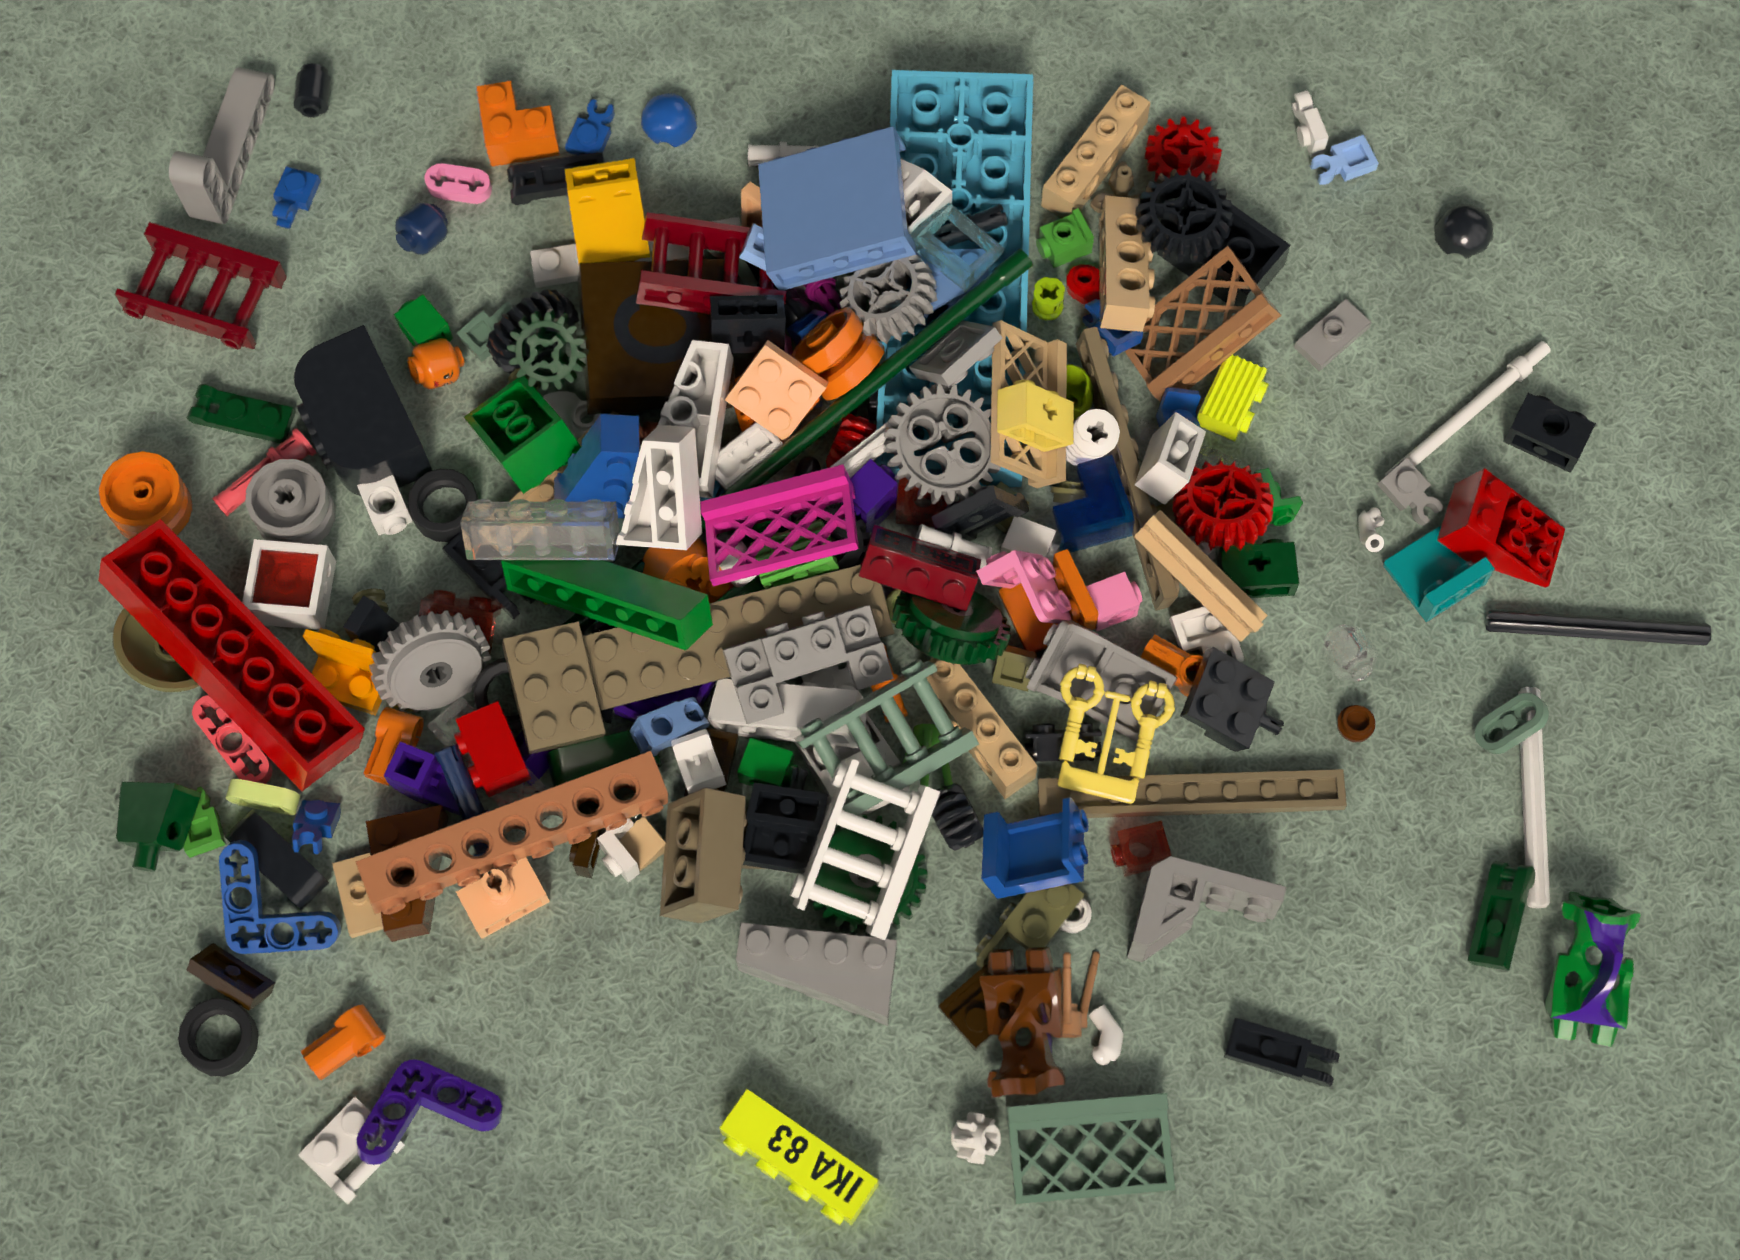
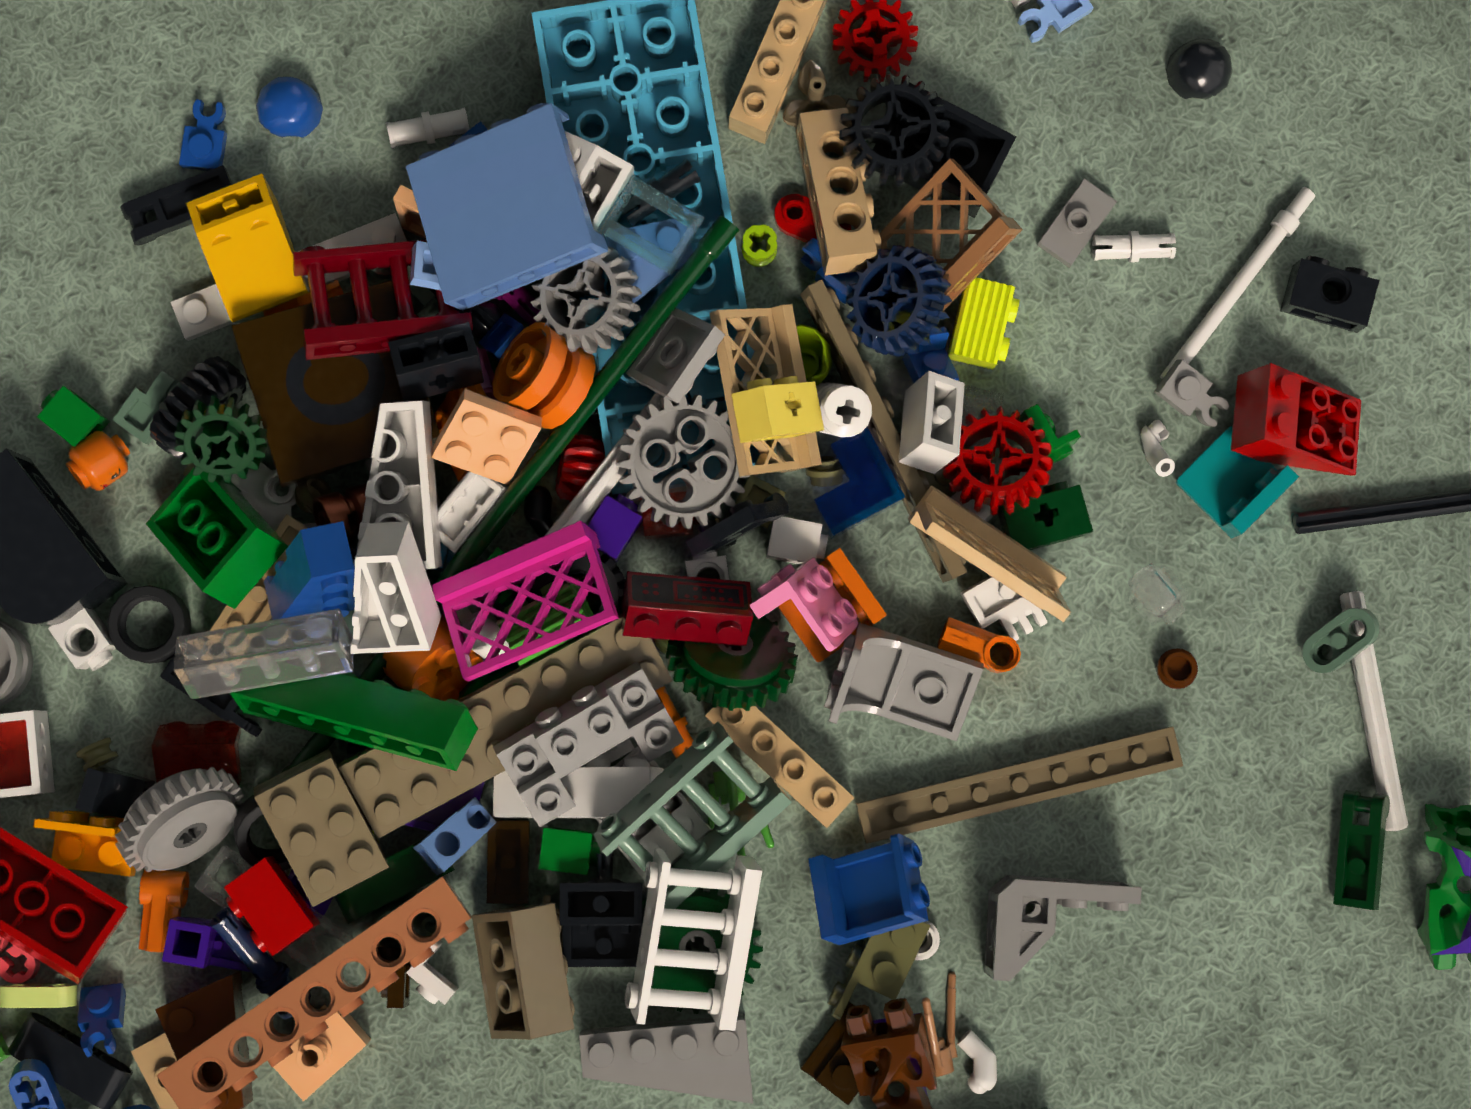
camera: 20 degrees left, 15 degrees up
(421, 228) = (41, 300): dark blue head -> none
(458, 183) = (69, 224): bright pink beam -> none
(514, 133) = (113, 163): orange brick -> none
(643, 843) = (454, 960): tan slope -> none
(698, 762) = (495, 870): white bracket -> none
(955, 543) = (717, 568): white pin -> none
(956, 817) = (782, 867): black gear -> none
(1012, 668) = (809, 684): olive plate -> none
(1048, 740) = (855, 755): black hinge -> none
(1065, 250) = (757, 184): bright green brick -> none
(1098, 783) = (921, 799): light yellow piece -> none
(1115, 600) = (898, 585): bright pink brick -> none
(1150, 835) = (996, 862): clear red brick -> none
(1153, 361) = (909, 318): none -> dark blue gear
(1229, 701) = (1042, 678): black plate -> none
(1278, 1052) = (1155, 1043): black hinge -> none
(1379, 362) = (1133, 246): none -> white pin

